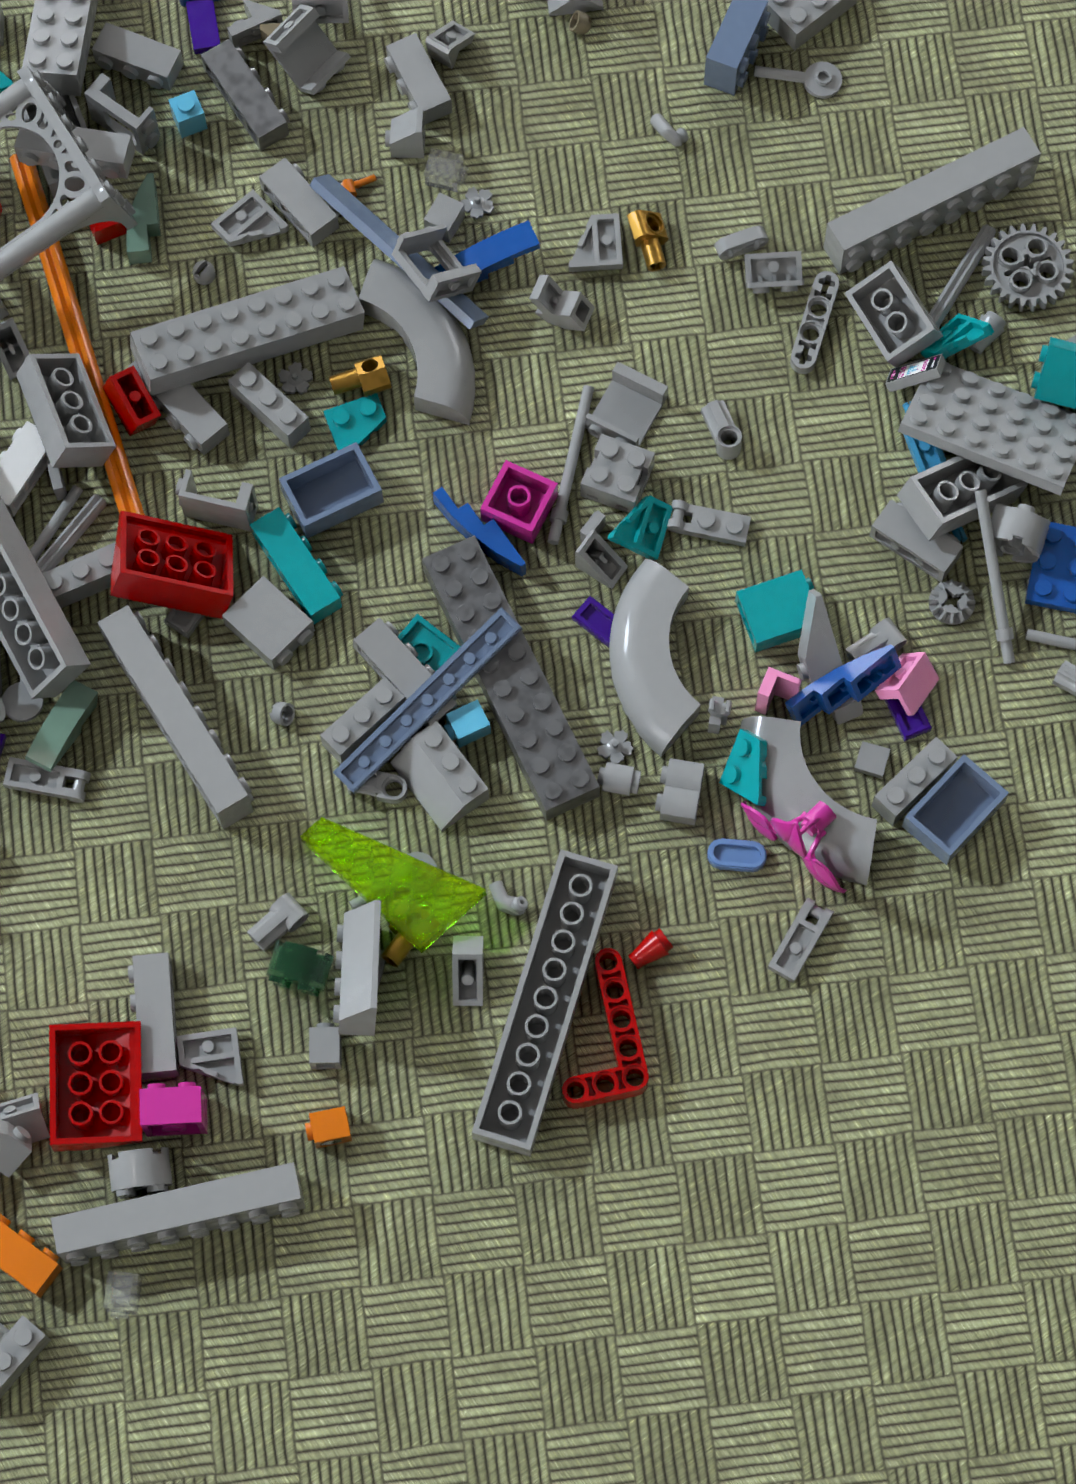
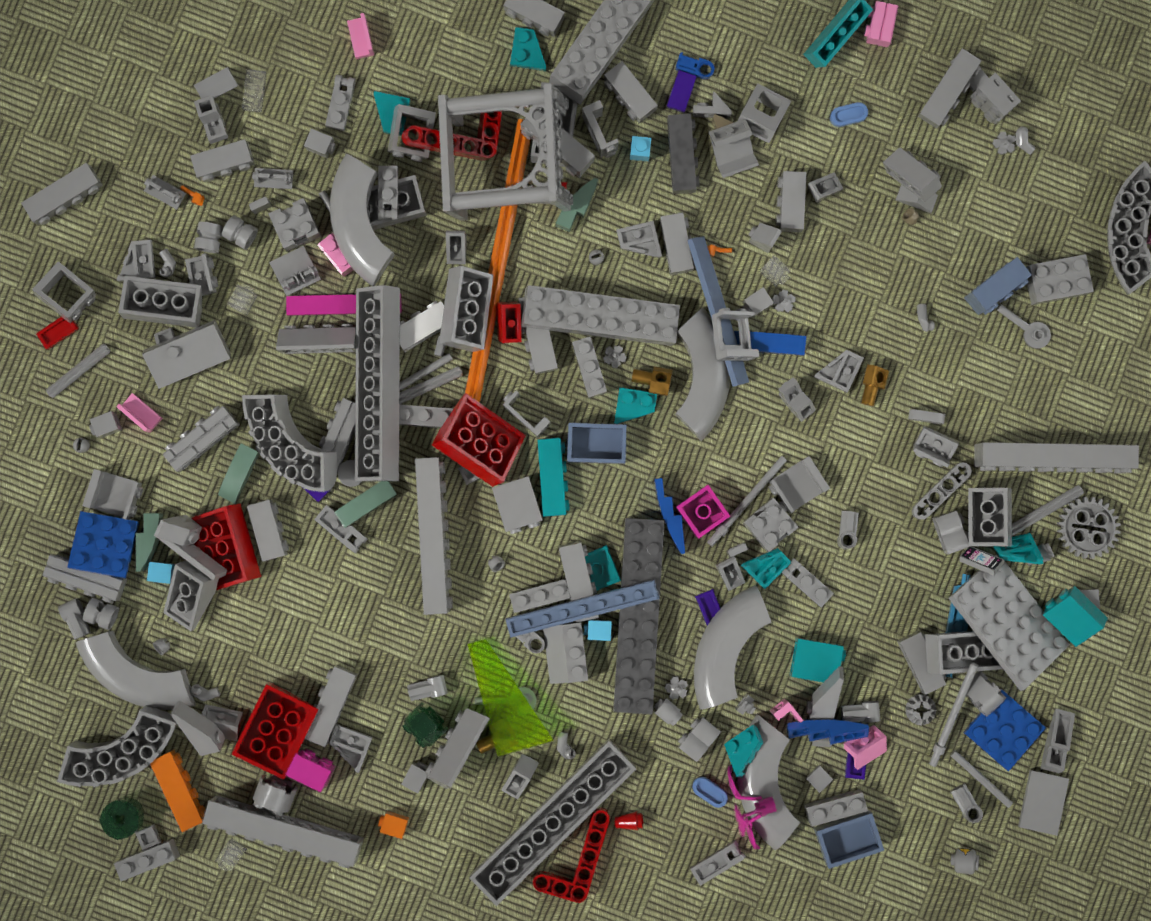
camera: 25 degrees right, 15 degrees up
(856, 363) = (951, 532): none -> light grey brick

